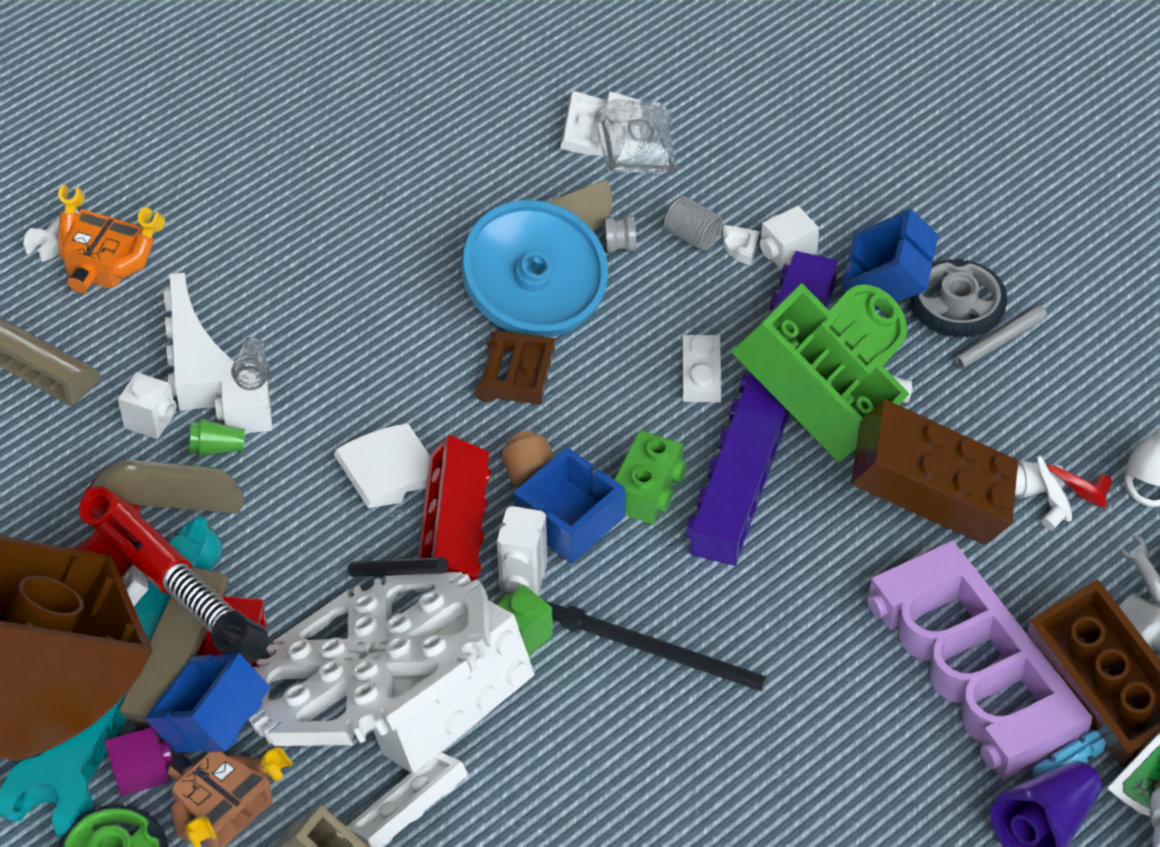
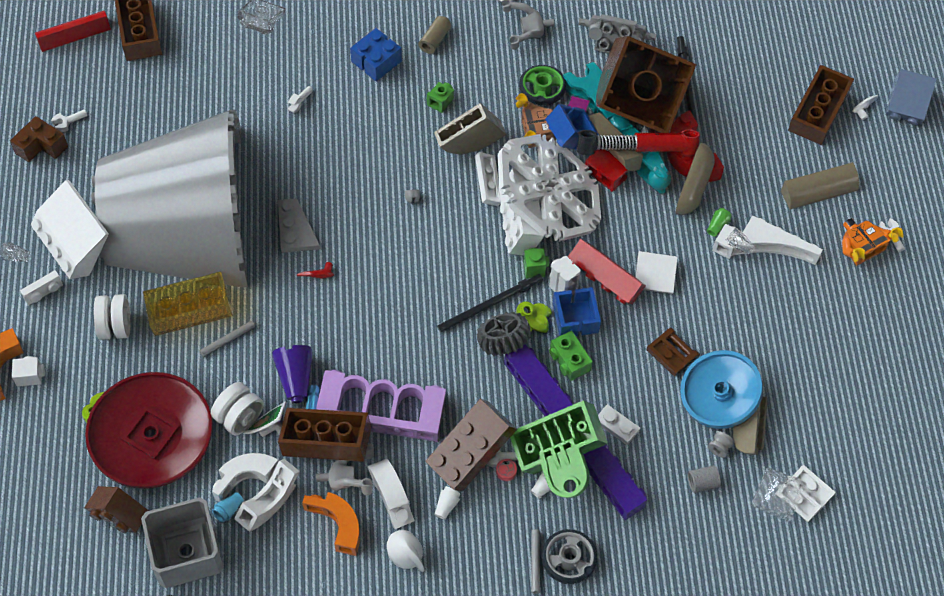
camera: 125 degrees right, 10 degrees up
(147, 405) = (753, 205): white brick -> none
(398, 567) = (593, 233): black bar -> none
(525, 456) = (615, 319): medium nougat head -> none
(622, 572) = (537, 315): none -> lime plate
(696, 584) = (503, 333): none -> dark grey gear
(740, 243) = (680, 497): white tile -> none
(788, 233) = (664, 513): white brick -> none
(893, 256) = (598, 528): blue piece -> none
(1057, 499) = (425, 502): white bar -> none
(1091, 492) = (425, 517): red bar -> none
(1093, 545) = (392, 493): none -> white arch

